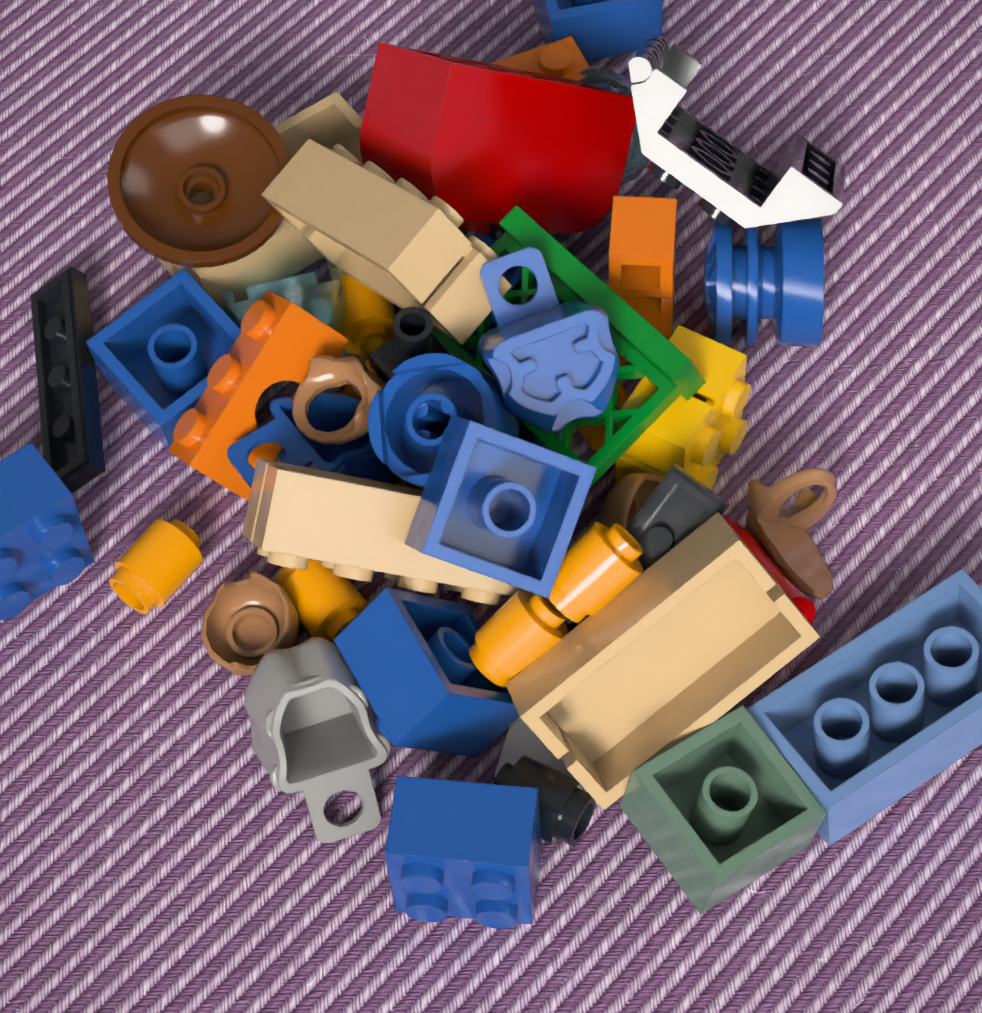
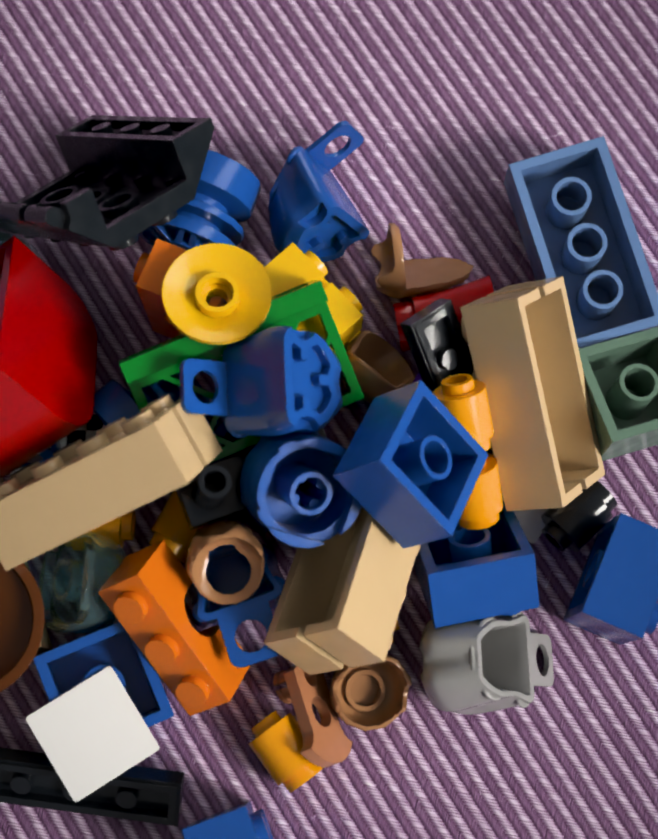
camera: 80 degrees left, 20 degrees up
(118, 351) = (92, 733): none -> white sticker
(170, 587) = (324, 742): none -> nougat piece
(630, 241) = (213, 272): none -> yellow dish
(831, 398) = (309, 202): none -> blue piece

